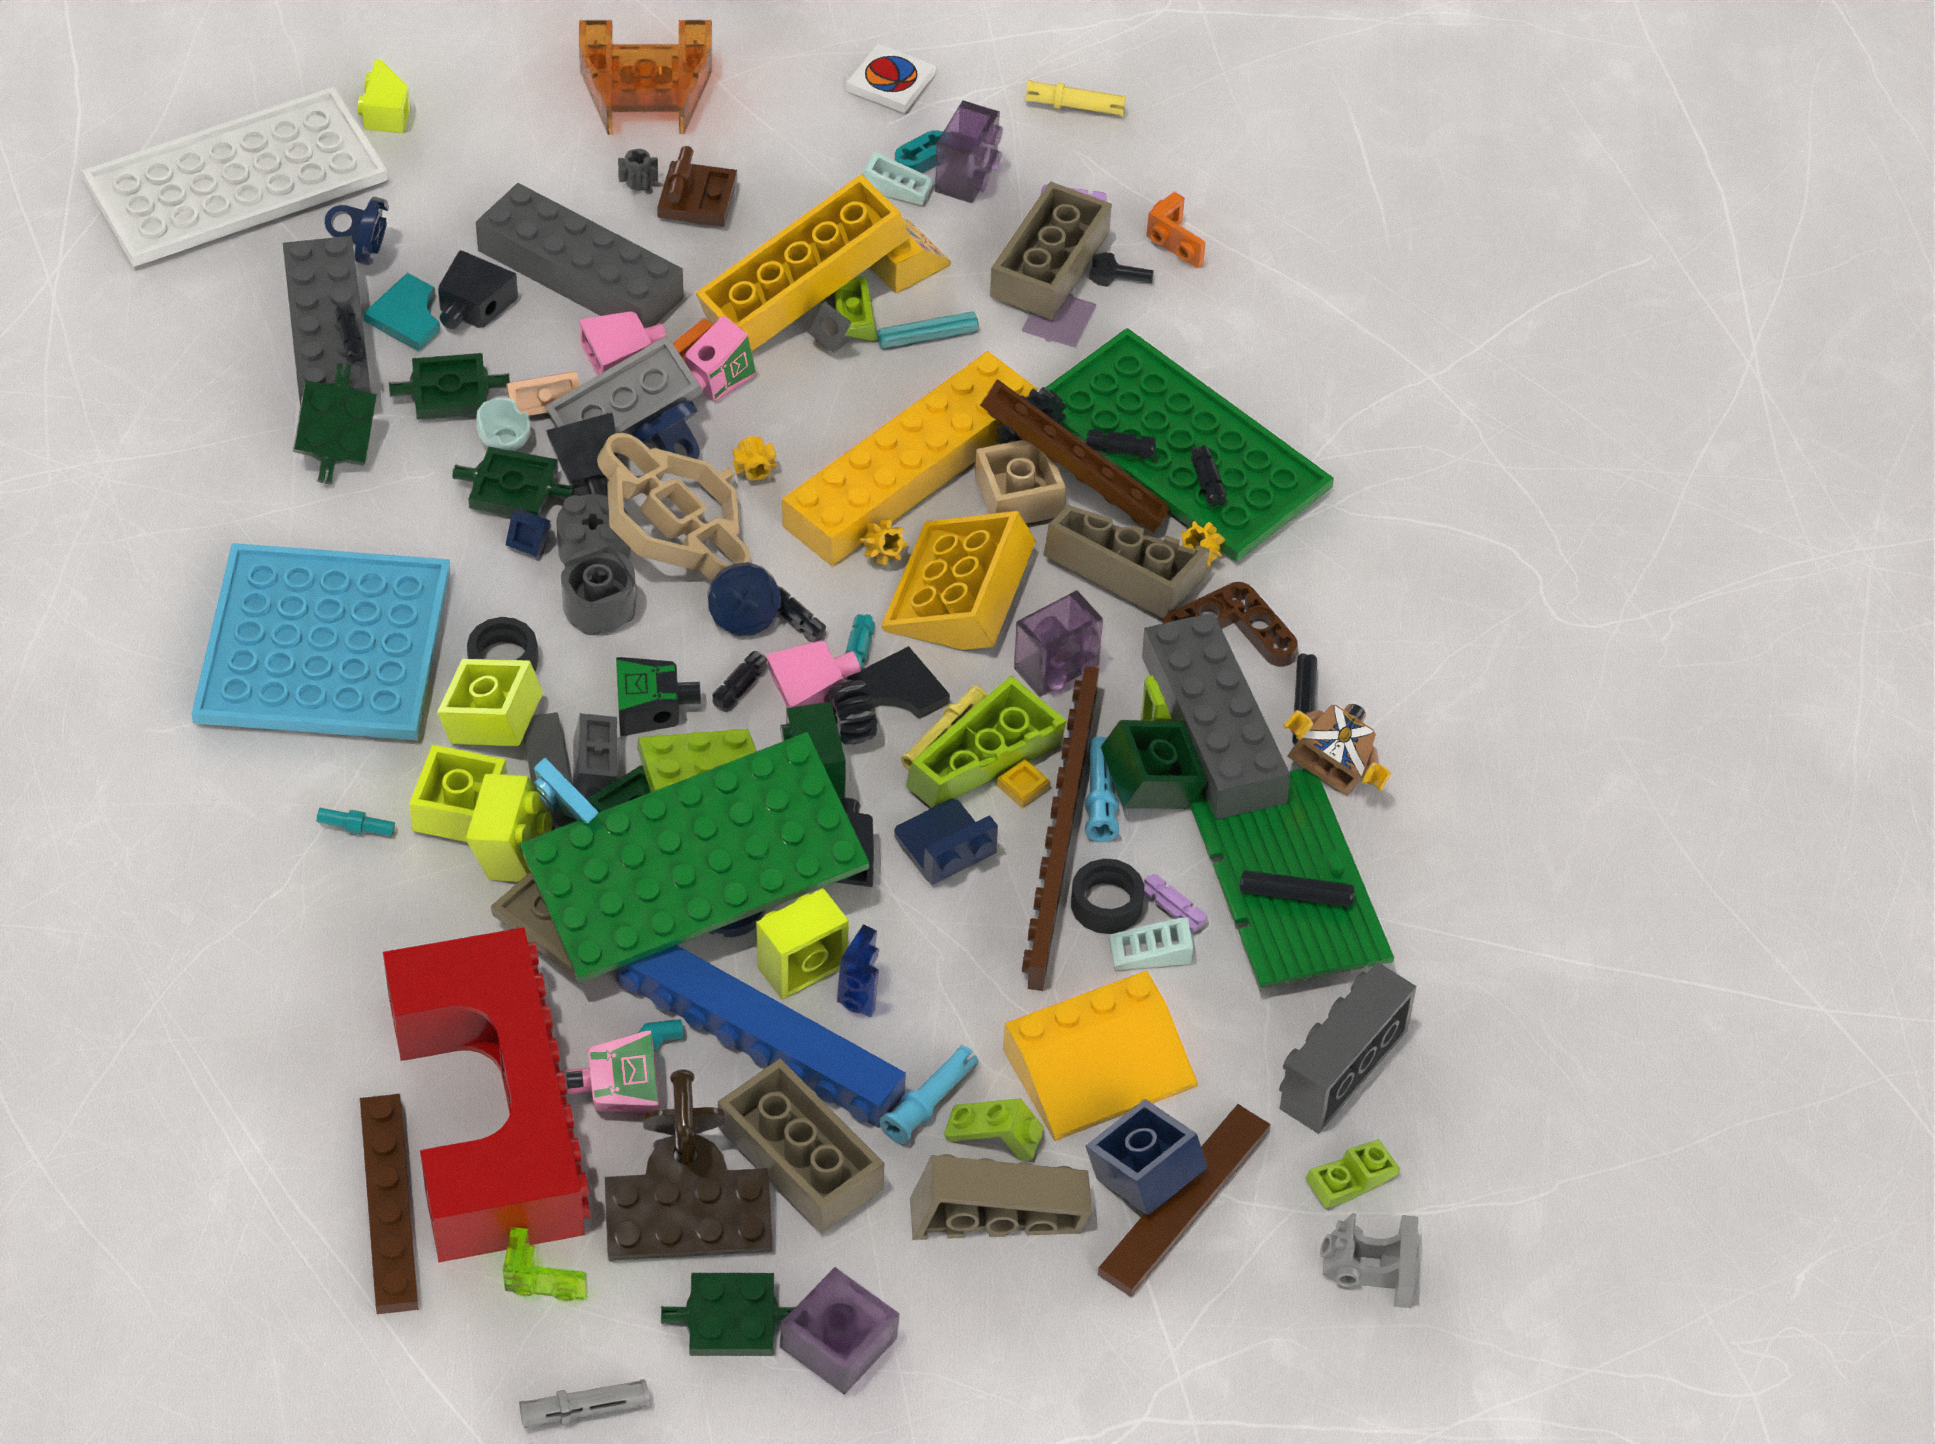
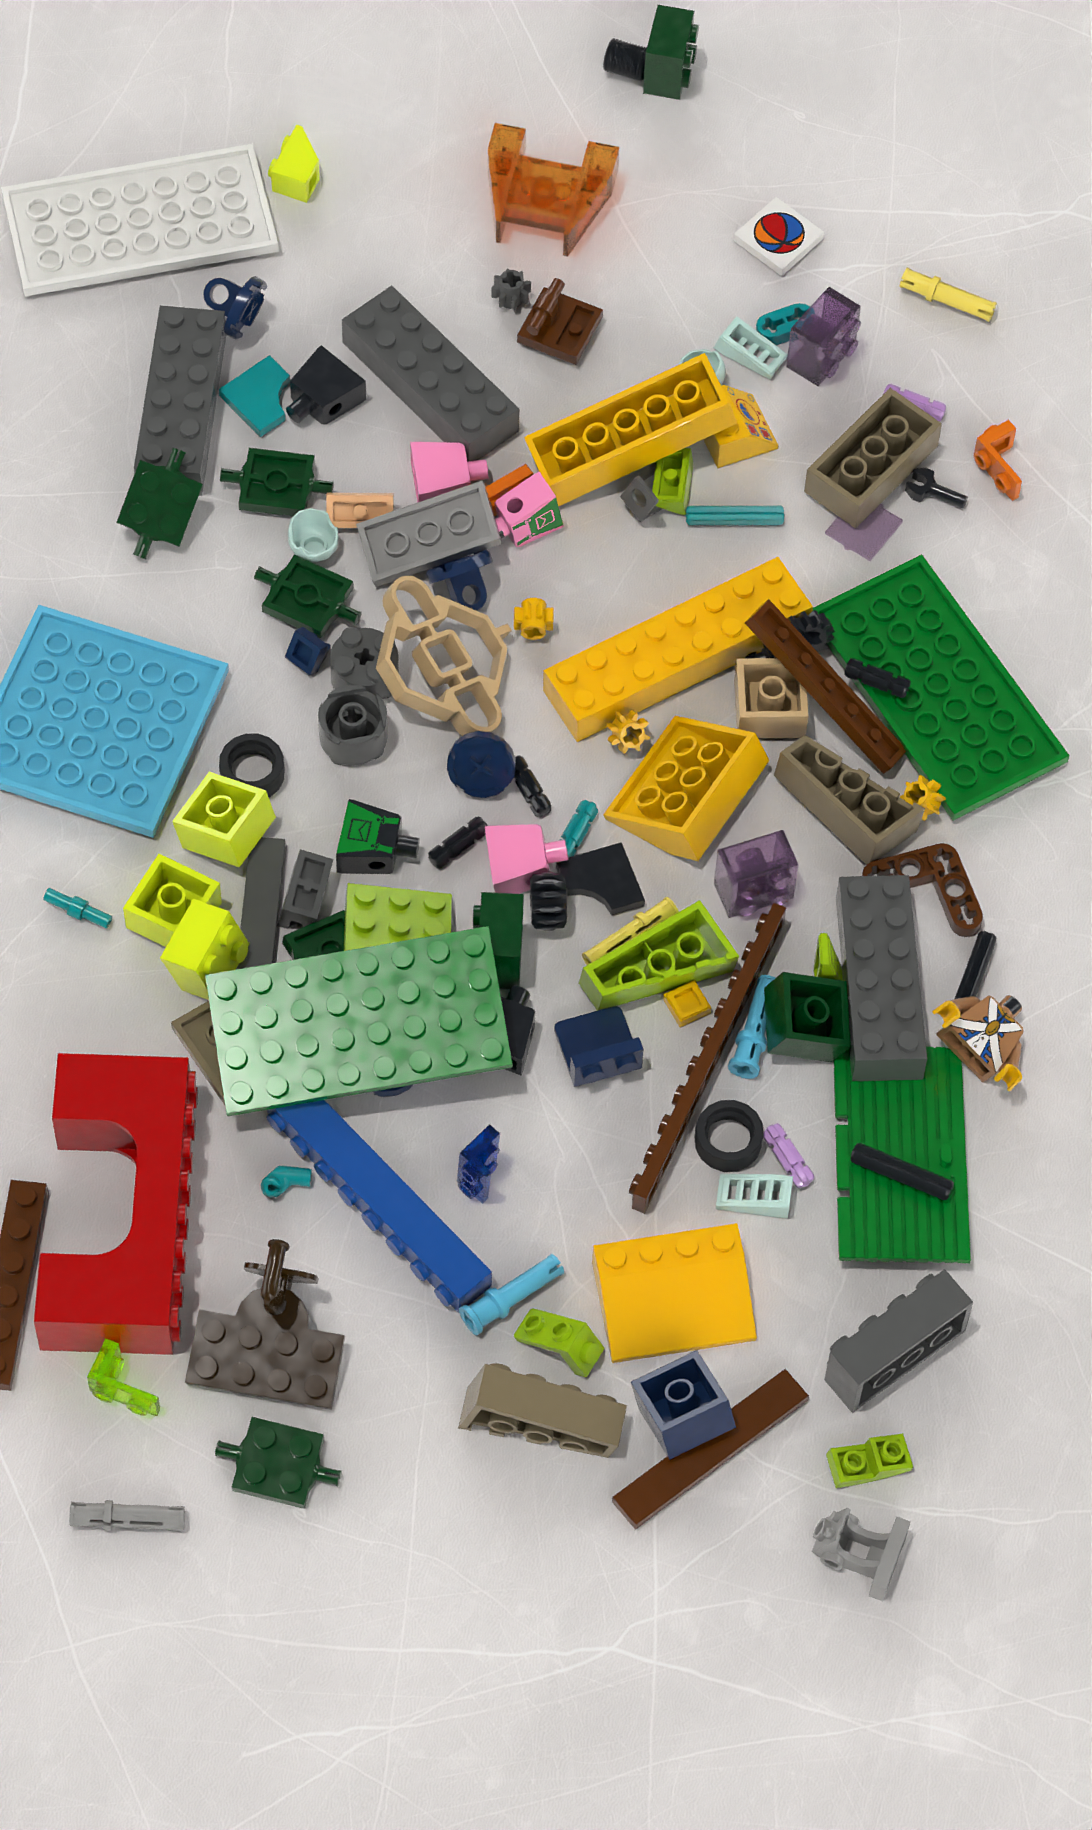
camera: 15 degrees right, 10 degrees up
(350, 333) = (194, 417): black axle -> none
(560, 793) = (253, 927): medium azure wing -> none
(578, 448) = (372, 576): black torso -> none
(620, 1075) = (240, 1213): torso -> none
(801, 943) = (435, 1122): neon yellow brick -> none
(802, 1144) = (380, 1319): dark tan brick -> none
(839, 1330) = (364, 1504): clear purple brick -> none
(1208, 476) = (949, 729): black axle -> none

